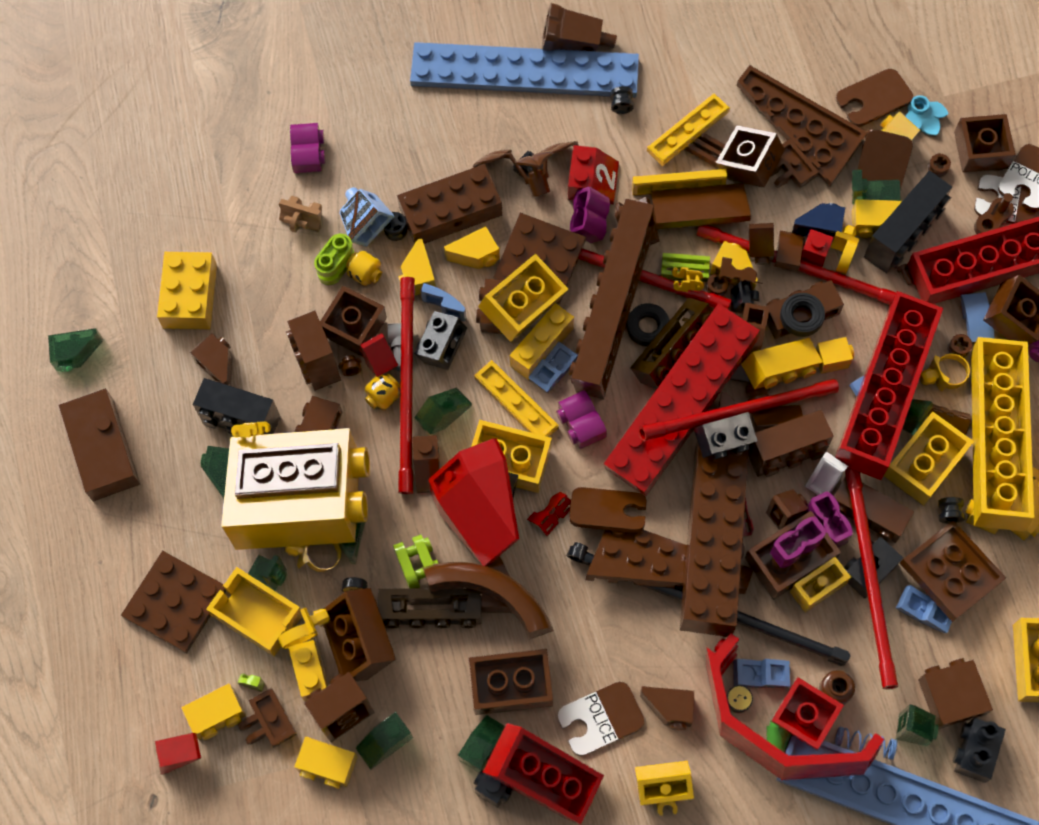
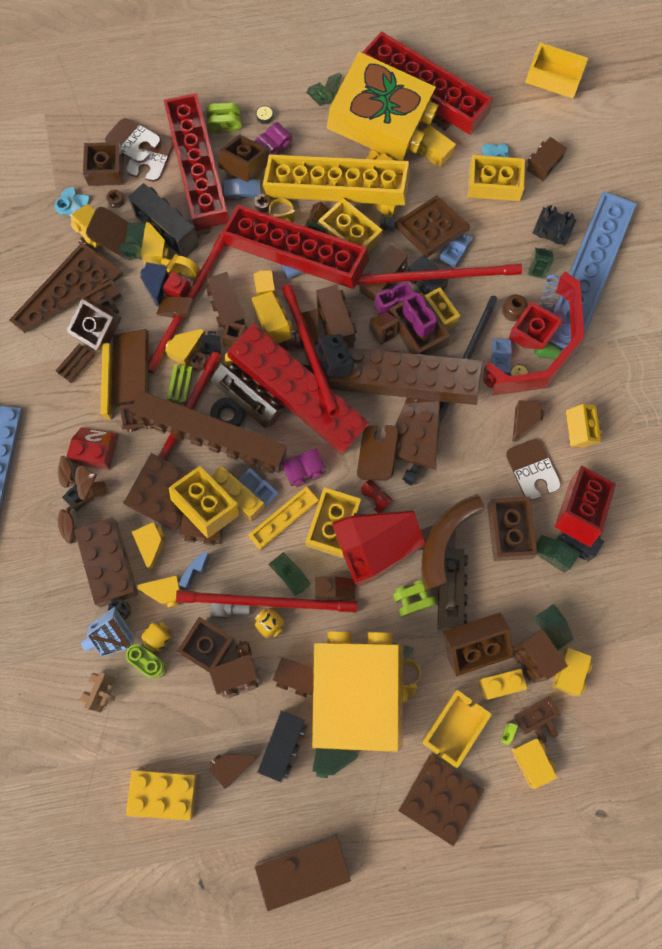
camera: 90 degrees left, 5 degrees up
(72, 348) = (209, 903): clear green slope -> none
(177, 752) = (570, 792): red slope -> none
(249, 429) = (309, 731): yellow piece -> none
(268, 571) = (420, 719): clear green bracket -> none
(287, 471) = (351, 695): tile -> none
(305, 631) = (476, 684): yellow piece -> none
(306, 148) = (33, 686): magenta brick -> none
(353, 583) = (433, 648): black tile -> none
(378, 355) = (243, 622): red slope -> none
(440, 340) = (226, 570): black brick -> none
(590, 214) = (127, 449): magenta brick -> none
(621, 100) = (25, 419): black wheel -> none
(688, 129) = (61, 370): yellow tile -> none
(691, 279) = (190, 379): yellow piece -> none
(729, 271) = (195, 344): reddish brown piece -> none
(761, 243) = (172, 321): reddish brown slope -> none
(802, 300) = (226, 291): black tyre -> none
(826, 474) = (361, 297): white tile -> none
(878, 95) = (50, 230): reddish brown piece -> none
(955, 693) = (516, 236): reddish brown piece -> none
(997, 214) = (161, 165): reddish brown piece -> none

